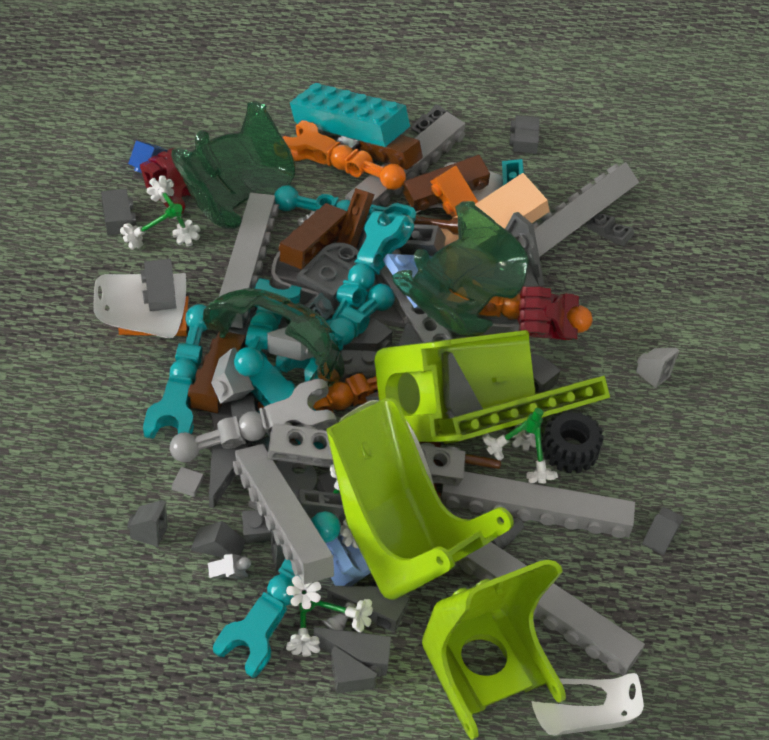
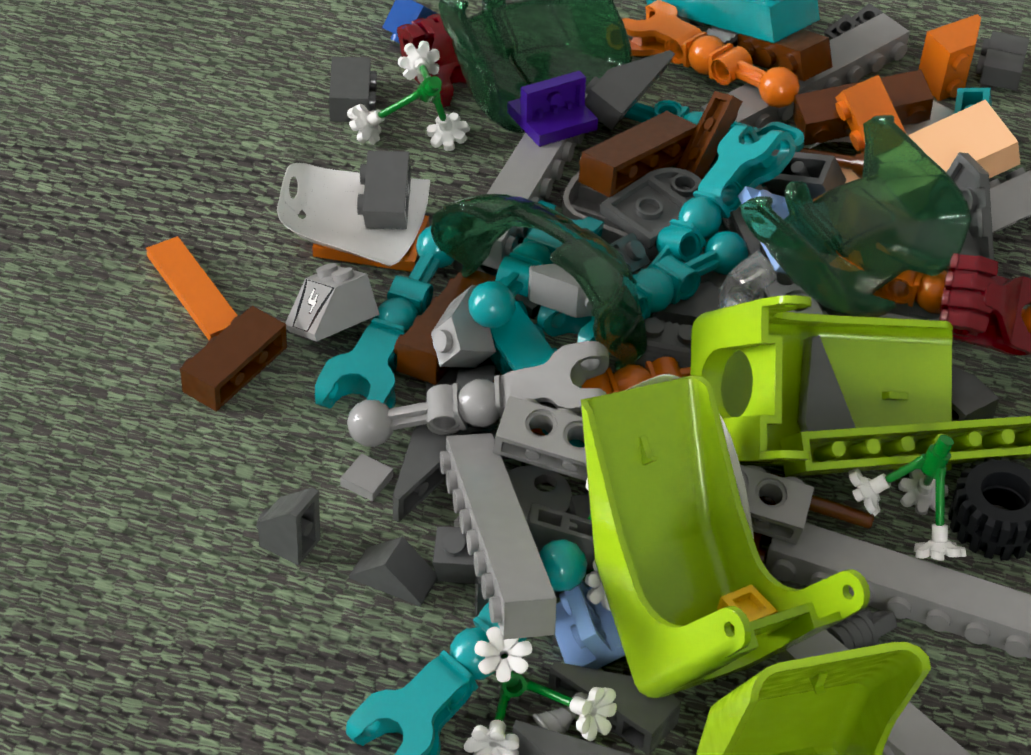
camera: 15 degrees right, 5 degrees down
(47, 369) = (191, 286): none -> orange tile
(85, 414) = (233, 358): none -> reddish brown brick
(140, 369) = (331, 302): none -> light grey slope
(231, 566) = (403, 608): light grey piece -> none
(254, 213) = (553, 109): none -> dark purple bracket
(294, 191) = (623, 86): none -> dark grey slope
(395, 322) = (746, 281): none -> clear cylinder
(438, 535) = (749, 601): none -> yellow tile
(493, 138) = (948, 56): none -> orange slope

